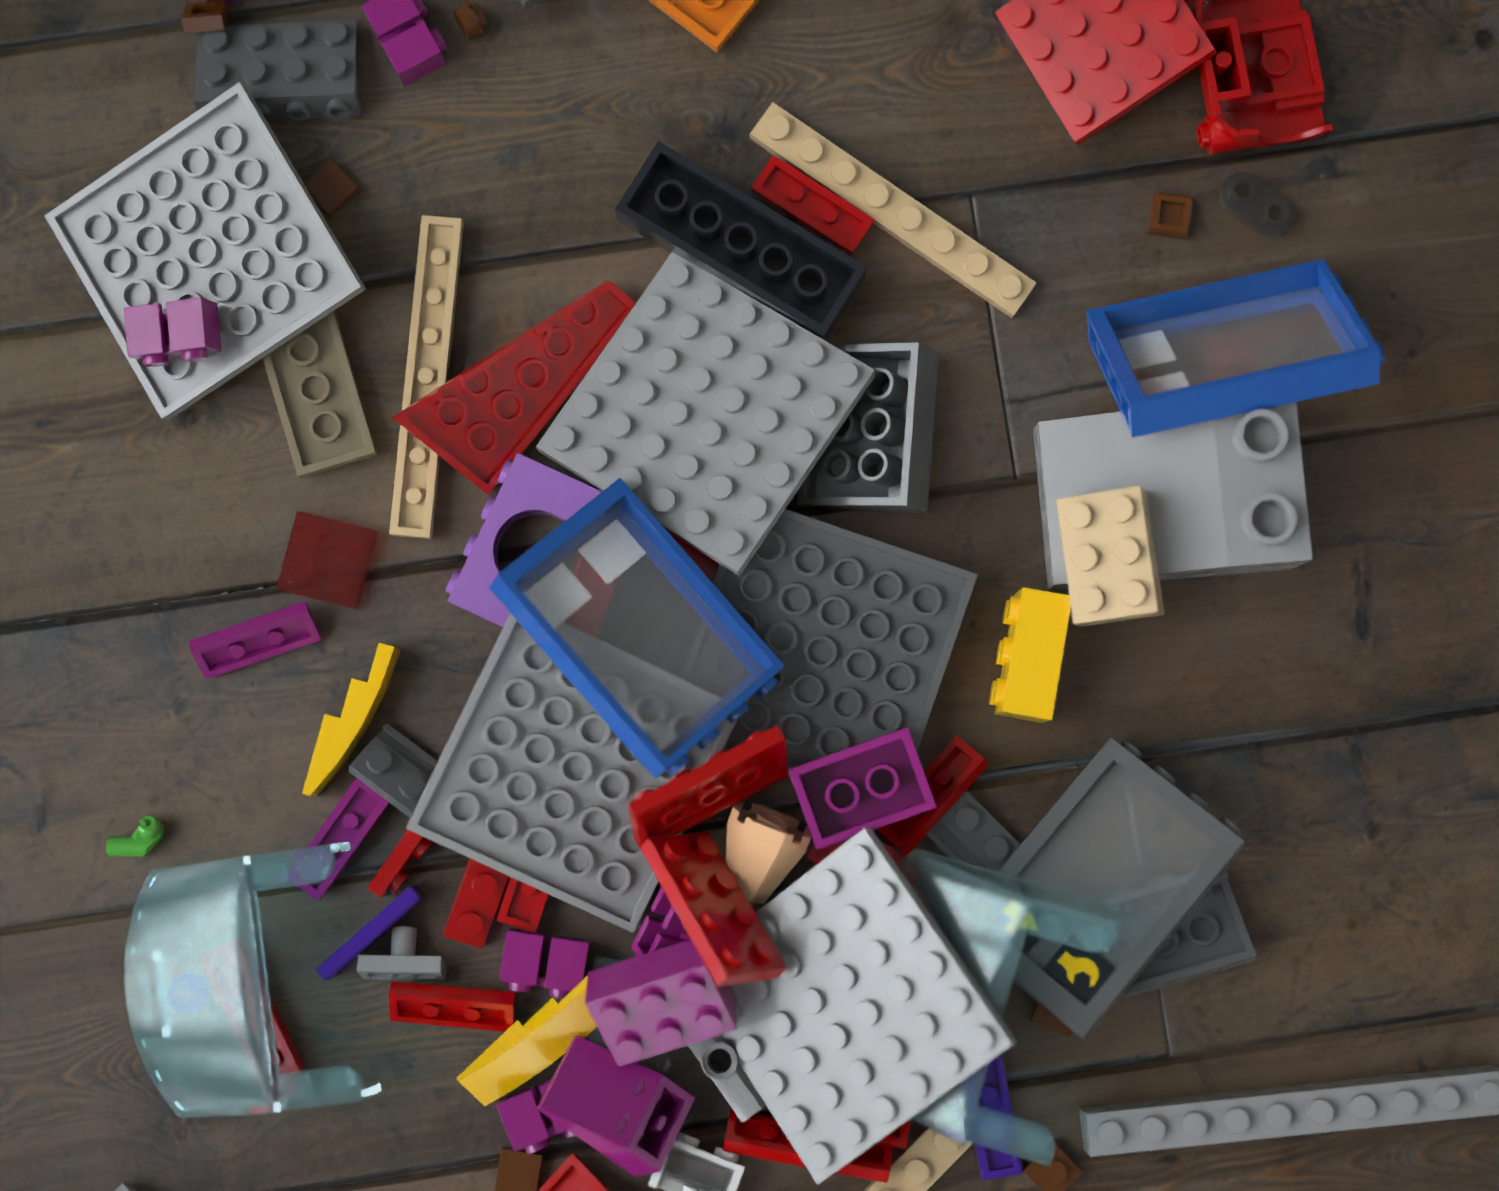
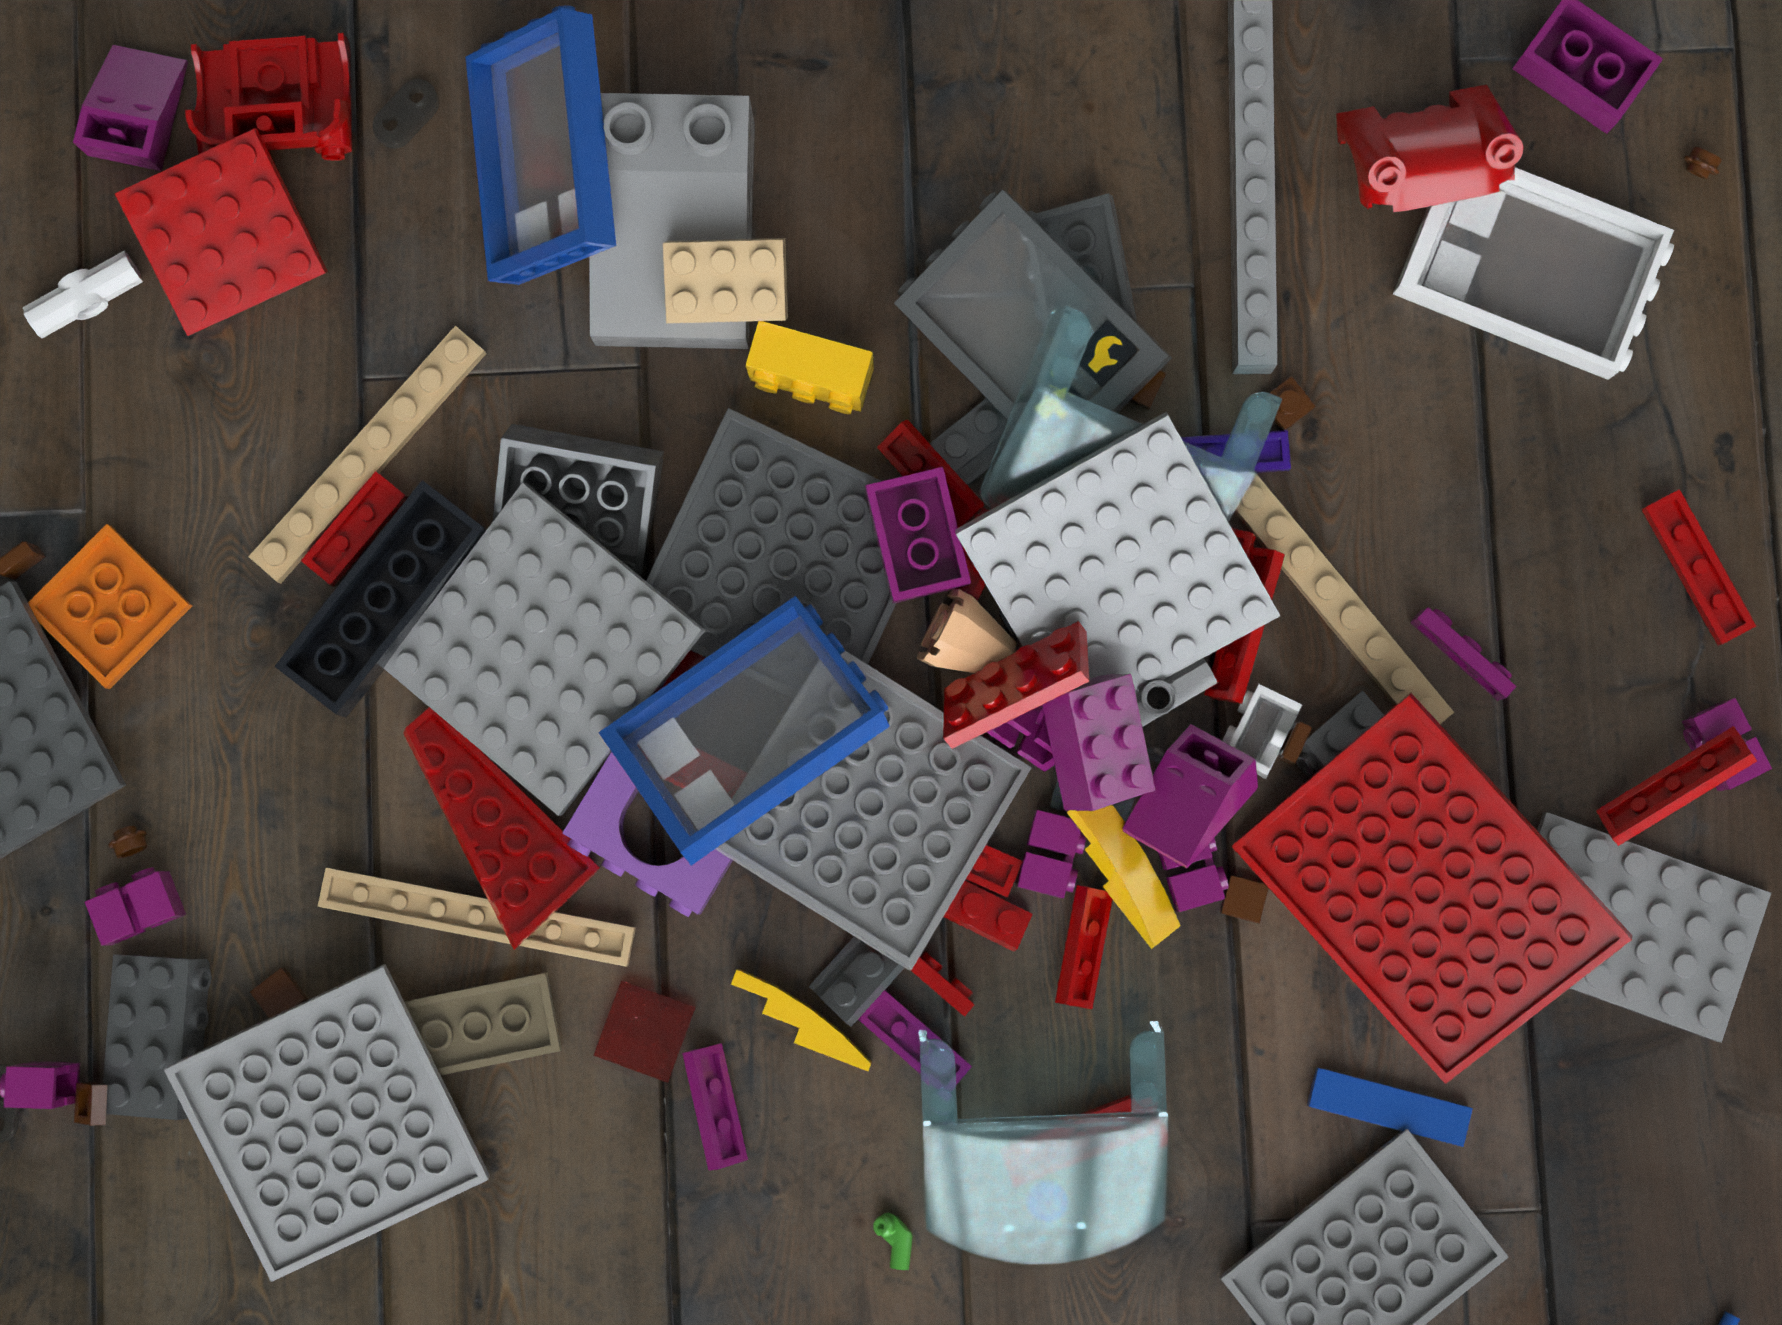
camera: 85 degrees left, 0 degrees up
(181, 328) = (404, 1165): piece -> none
(370, 933) = (1007, 1019): dark purple tile -> none
(402, 962) = (1037, 991): light grey tile -> none
(710, 787) = (903, 676): red plate -> none
(1170, 215) = (405, 194): reddish brown tile -> none

